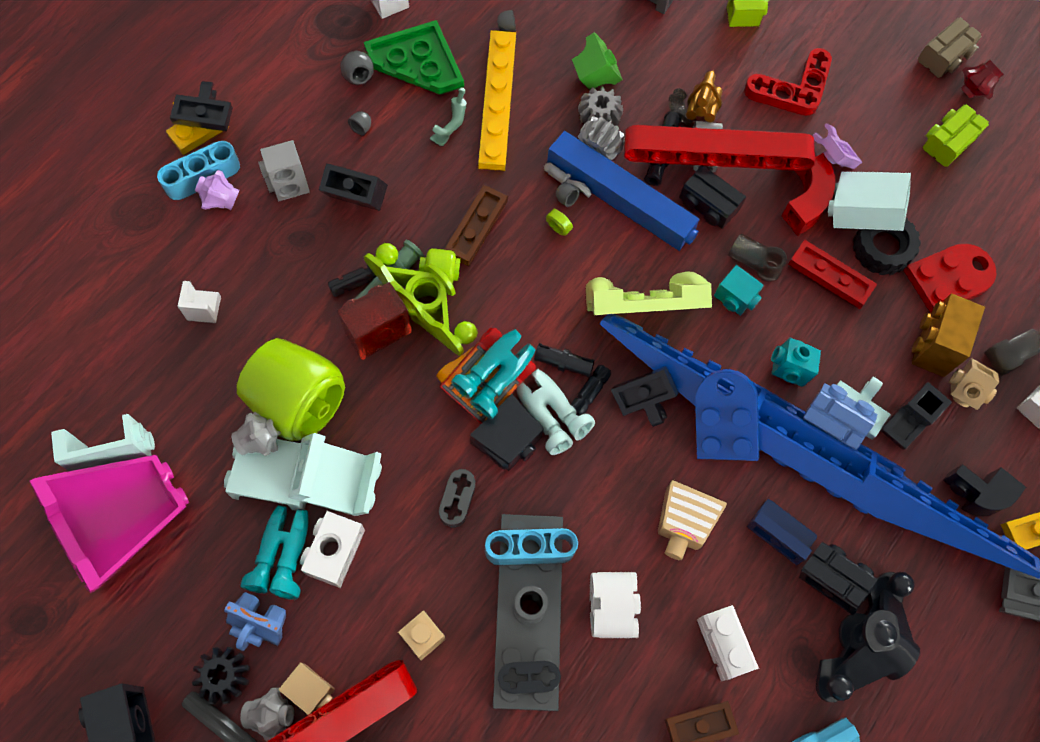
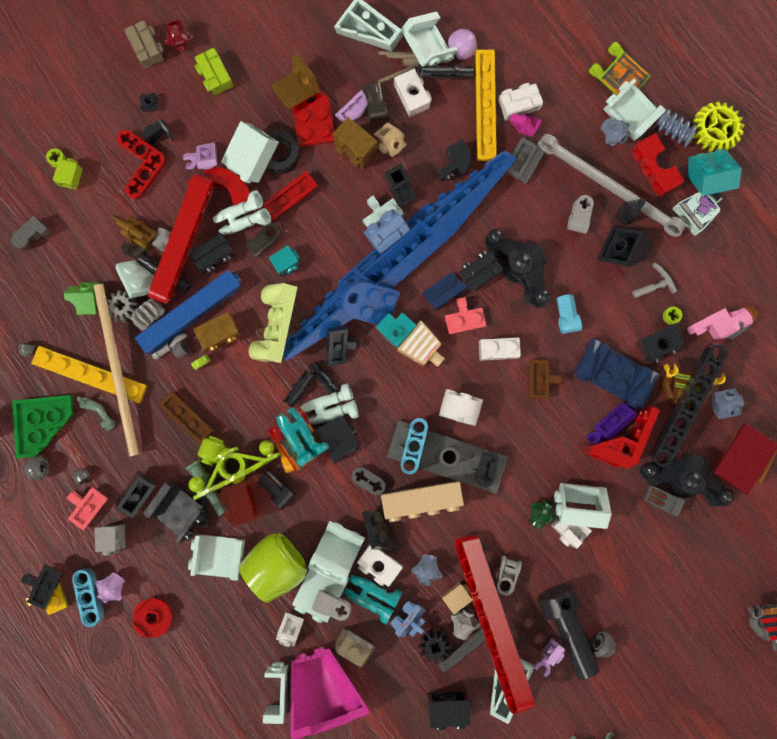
camera: 75 degrees left, 15 degrees up
(192, 270) = (153, 629): none -> red plate
(193, 547) = (353, 647): none -> dark tan torso
(197, 304) = (190, 615): white panel -> none
(204, 443) = (289, 630): none -> white bracket
(252, 483) = (327, 604): none -> light grey piece
(256, 435) = (300, 596): light grey rock -> none
(293, 311) = (216, 556): none -> light aqua panel
(321, 138) = (87, 507): none -> coral plate
(341, 627) = (427, 570): none -> sand blue rock
(343, 244) = (176, 511): none -> black panel
(382, 535) = (379, 532): none -> black wing
(405, 373) = (279, 492): none -> black piece
(422, 635) = (445, 524): tan brick -> none
(451, 583) = (421, 500): none -> tan brick
(512, 121) = (116, 370): none -> tan piece
(607, 229) = (217, 332): none -> pearl gold brick
(643, 110) = (134, 278): none -> light aqua wing
(699, 468) = (395, 329): none -> teal brick
(752, 576) = (465, 319): none -> coral plate
(789, 238) = (254, 202): none -> light aqua piece
(795, 362) = (343, 244): teal brick -> none
(845, 90) = (156, 130): none -> black plate
(877, 74) = (153, 106): none -> black plate
(990, 242) = (297, 85): none -> pearl gold bracket
(992, 719) = (580, 218): none -> light grey piece
(996, 328) = (354, 108): none -> lavender tile

